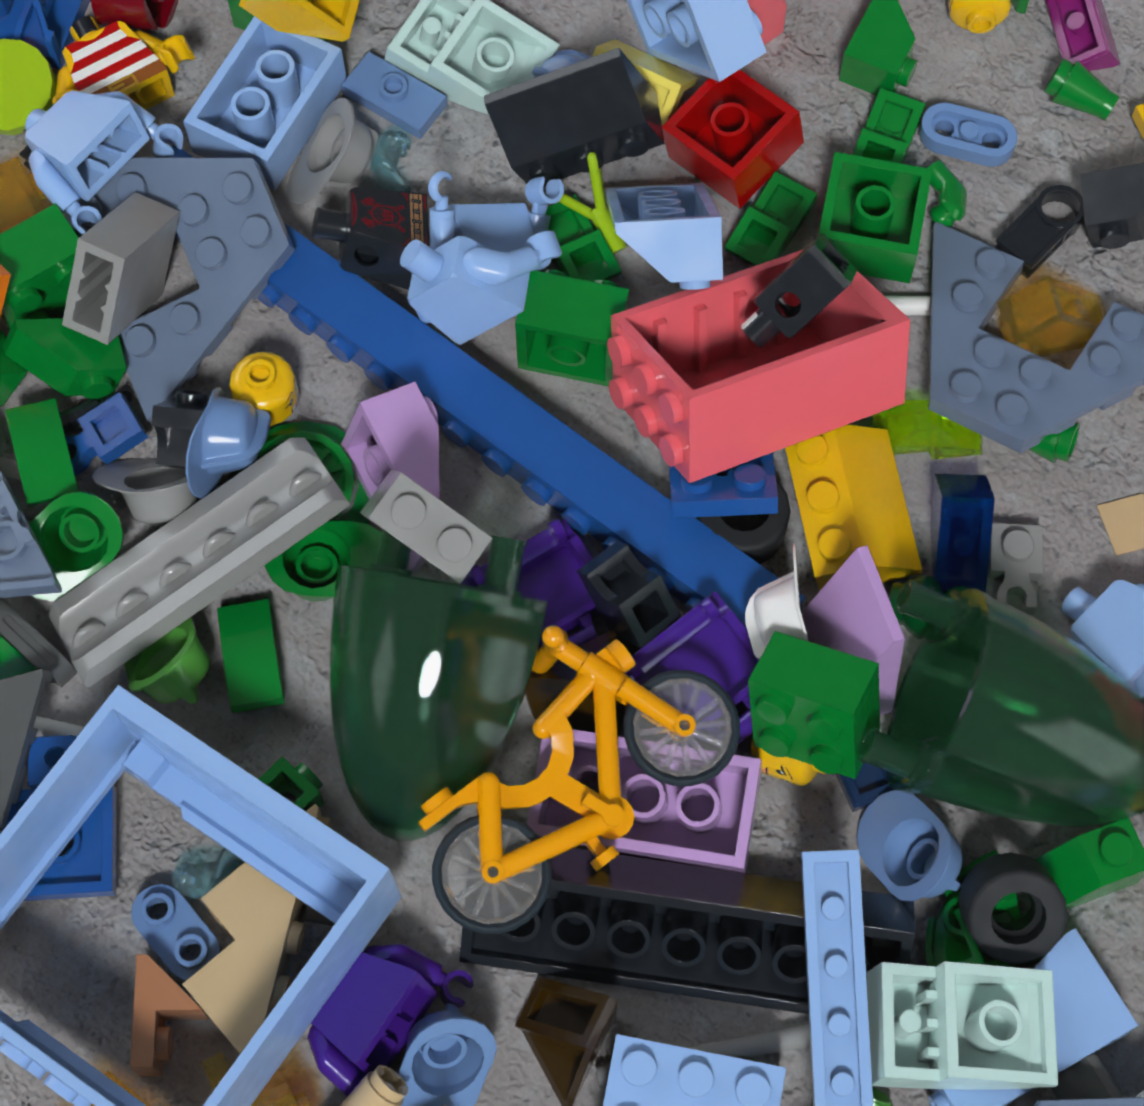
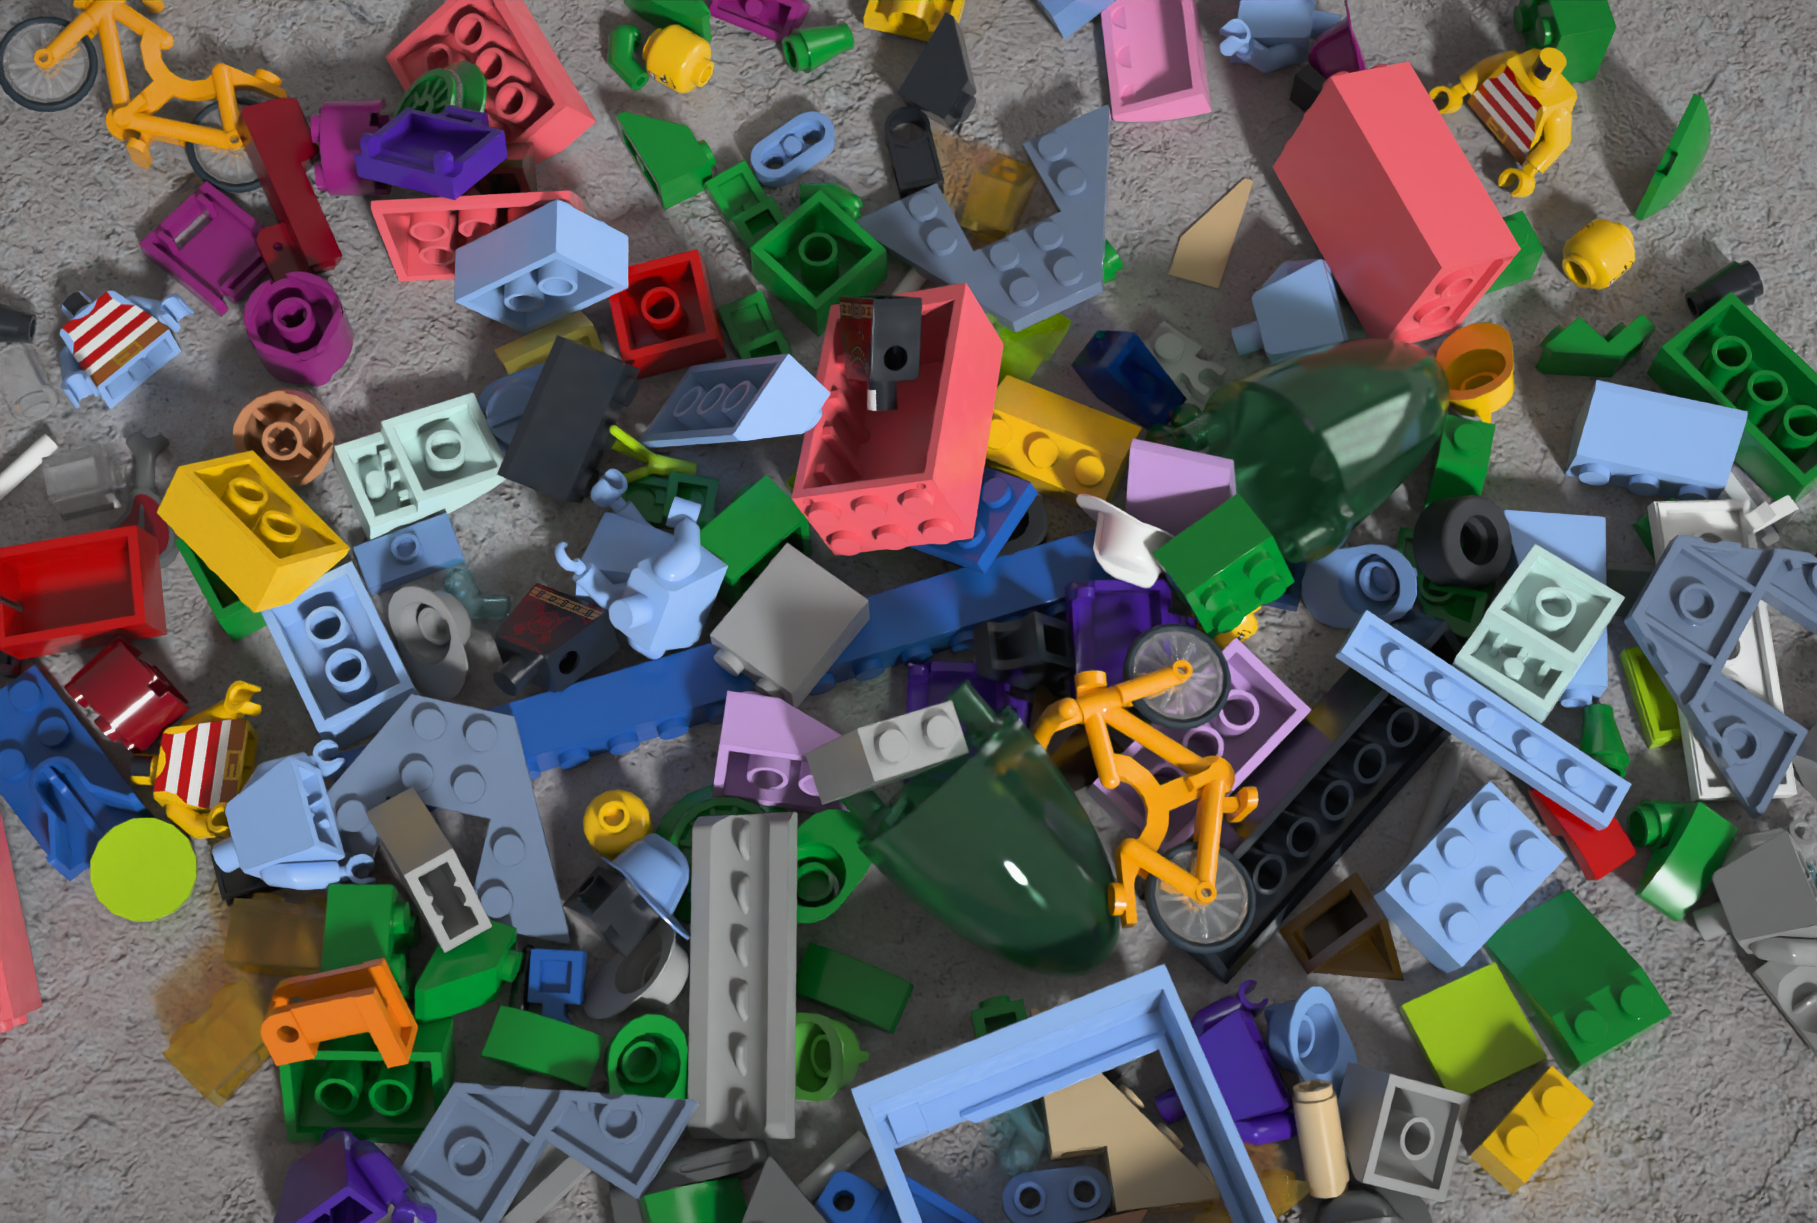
camera: 55 degrees left, 0 degrees up
(511, 398) = (789, 627): none -> light grey brick

